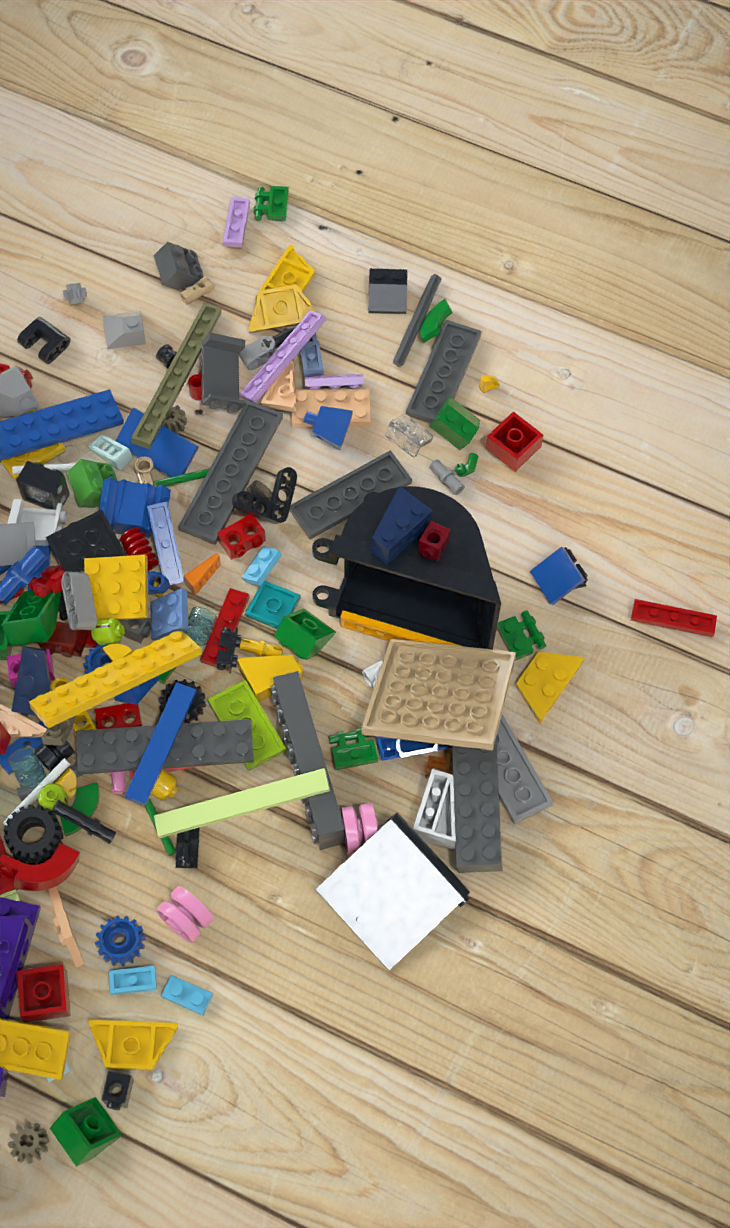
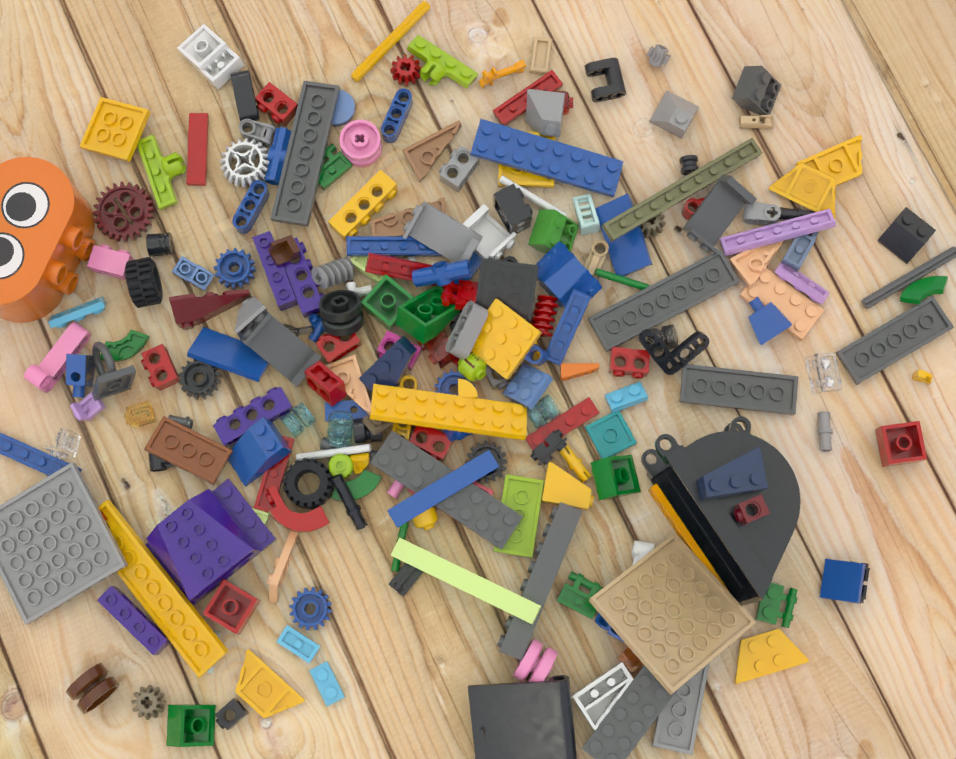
camera: 40 degrees right, 15 degrees up
(185, 914) = (361, 628): bright pink wheel -> none
(236, 222) = (833, 82): lavender plate -> none
(277, 203) = (880, 89): green plate -> none
(455, 423) = (868, 393): green slope -> none
(468, 468) = (848, 436): green arm -> none
(674, 618) = (905, 684): red plate -> none

